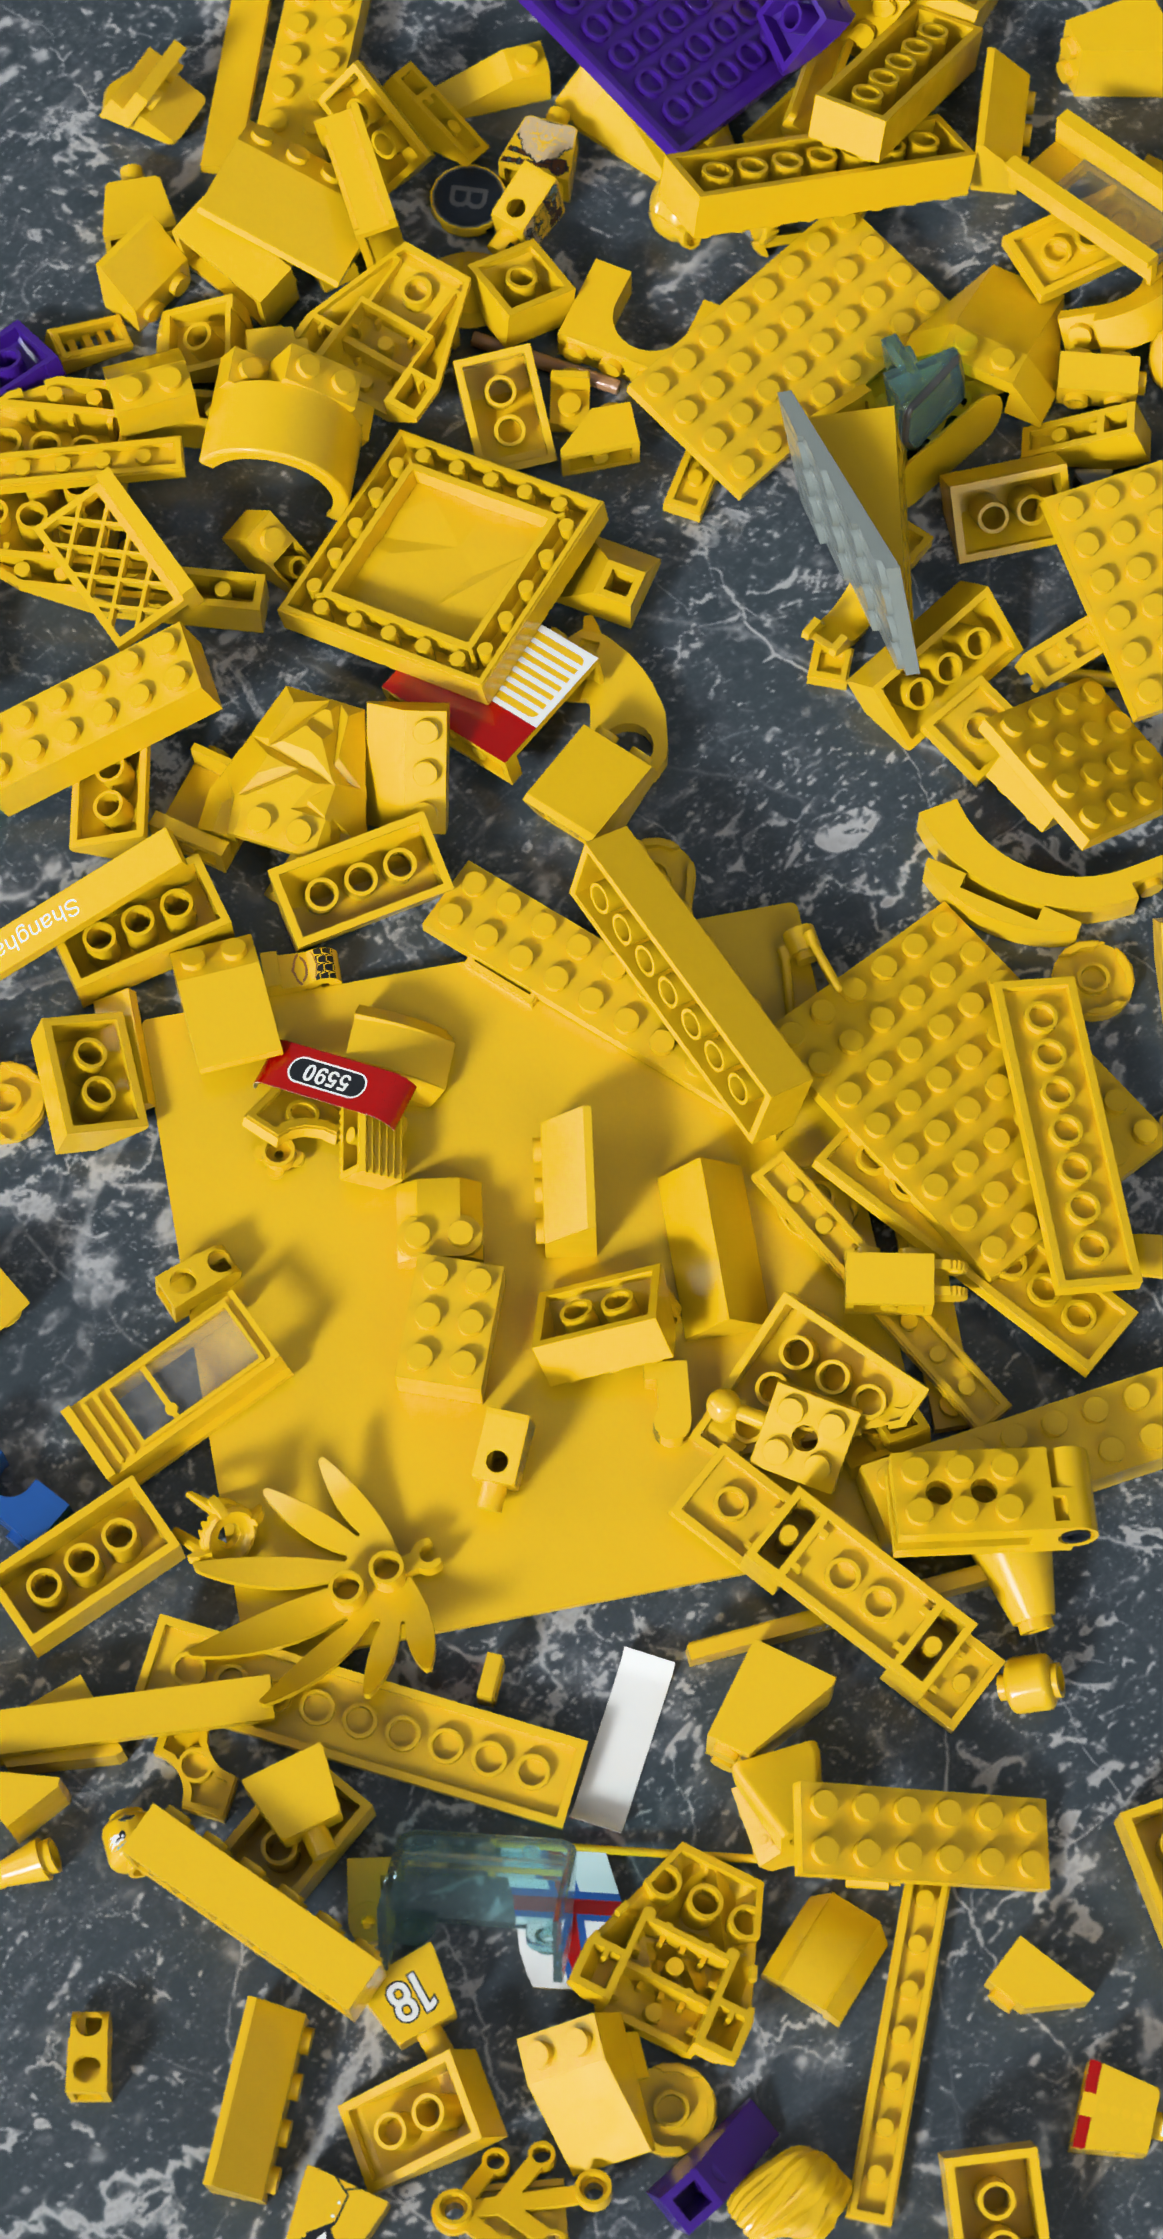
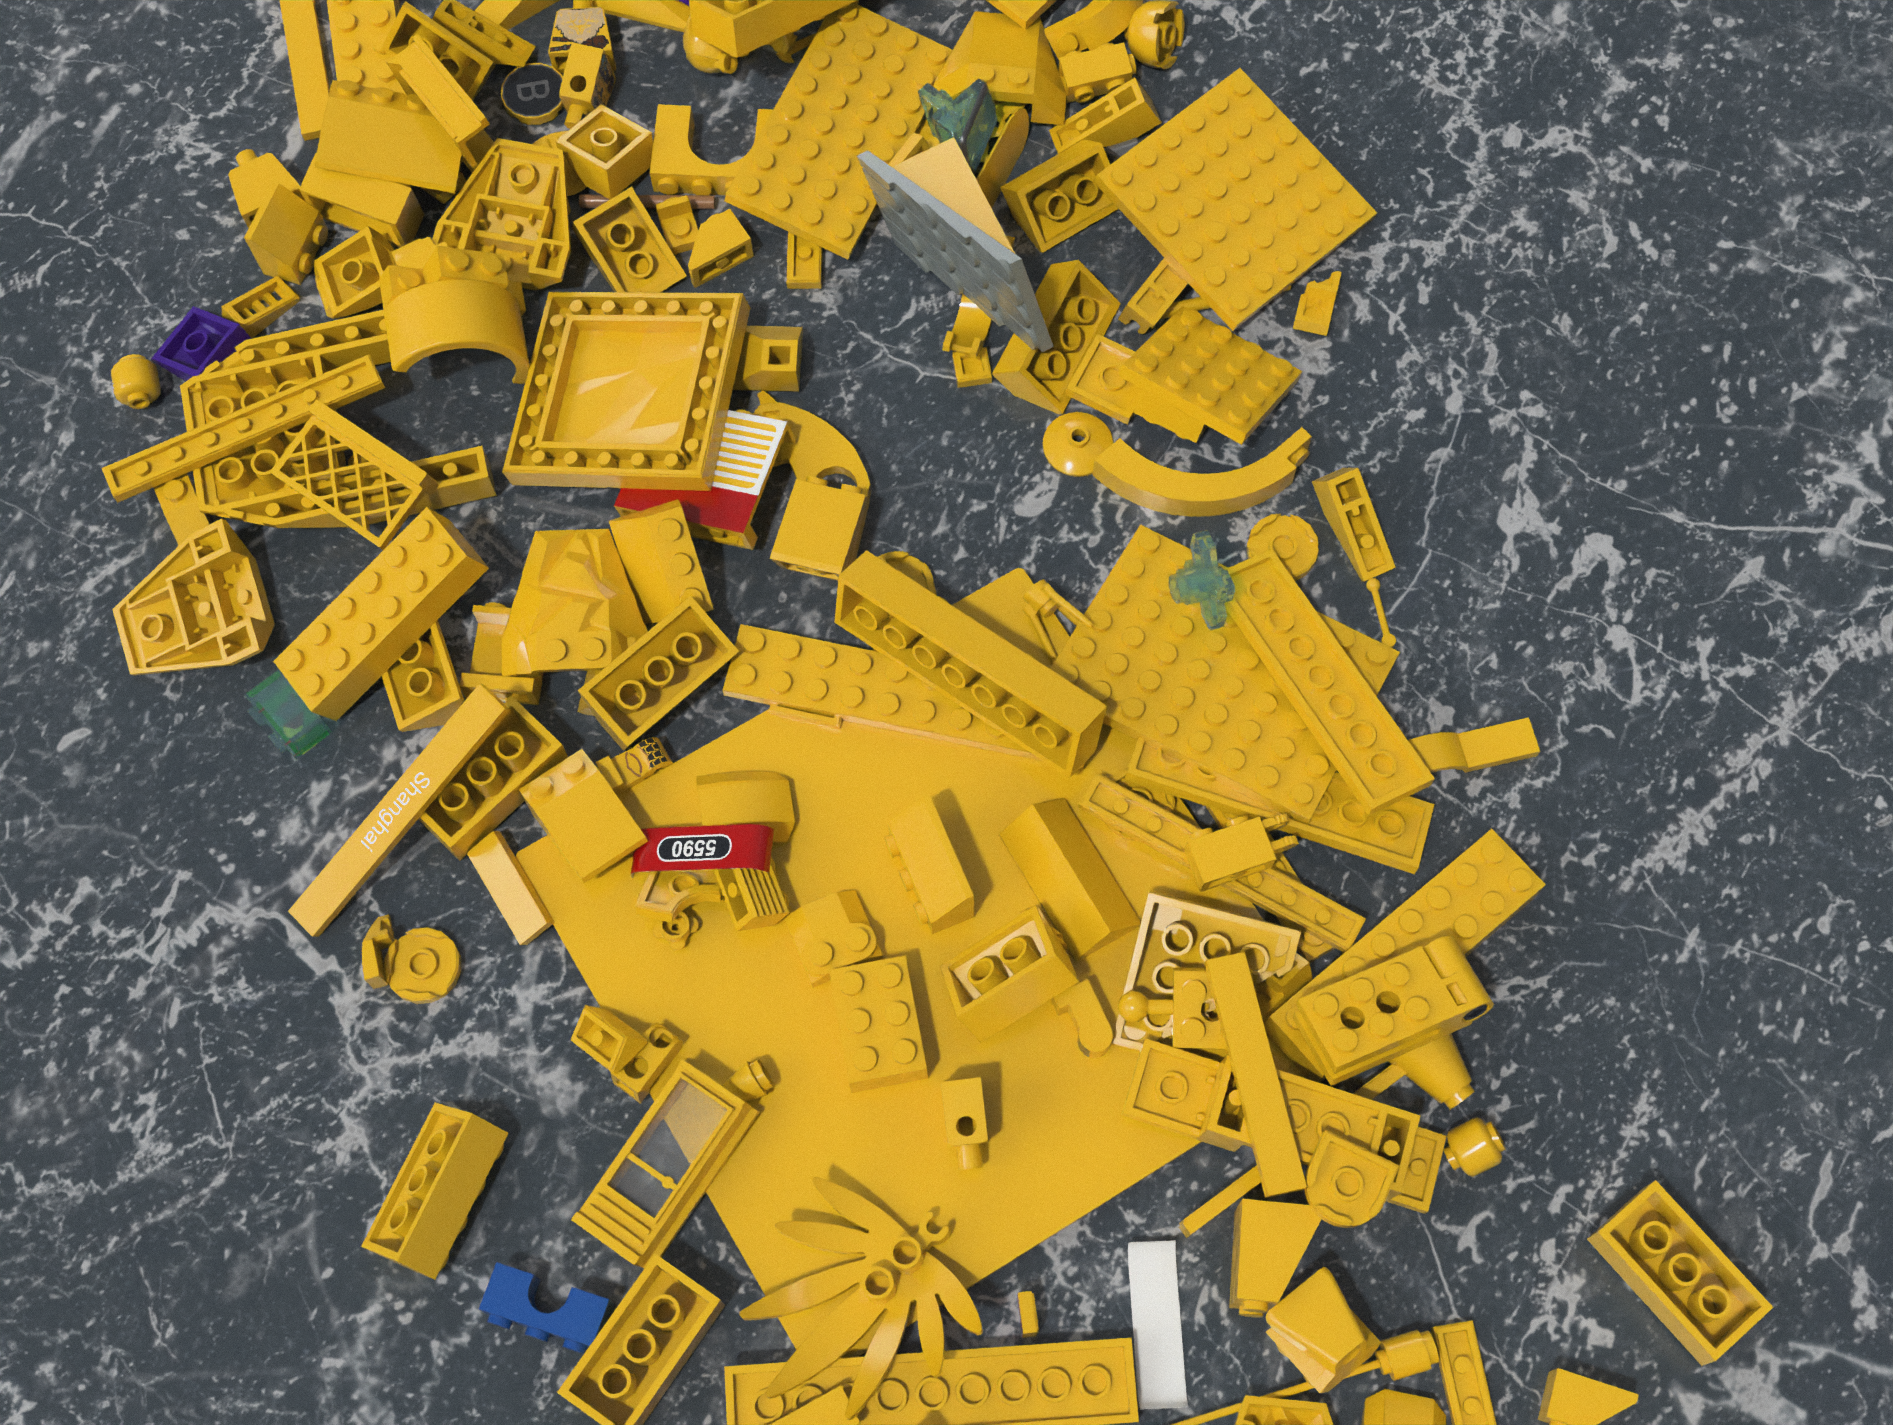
camera: 20 degrees left, 0 degrees up
(88, 1081) = (488, 922): yellow slope -> none
(151, 392) = (330, 327): yellow slope -> none
(154, 97) = (242, 91): yellow piece -> none
(165, 1242) = (607, 1038): none -> yellow slope
(221, 1512) = (747, 1256): yellow piece -> none
(267, 548) = (474, 424): yellow slope -> none
(295, 1339) = (749, 1081): none -> yellow cone
(817, 1516) = (1255, 1075): none -> yellow tile
(870, 1661) = (1347, 1181): none -> yellow tile
(903, 803) = (1071, 456): none -> yellow dish
(920, 1837) = (1443, 1316): yellow plate -> none
(977, 984) = (1203, 582): none -> clear light blue plant
(1048, 931) = (1178, 524): yellow slope -> none

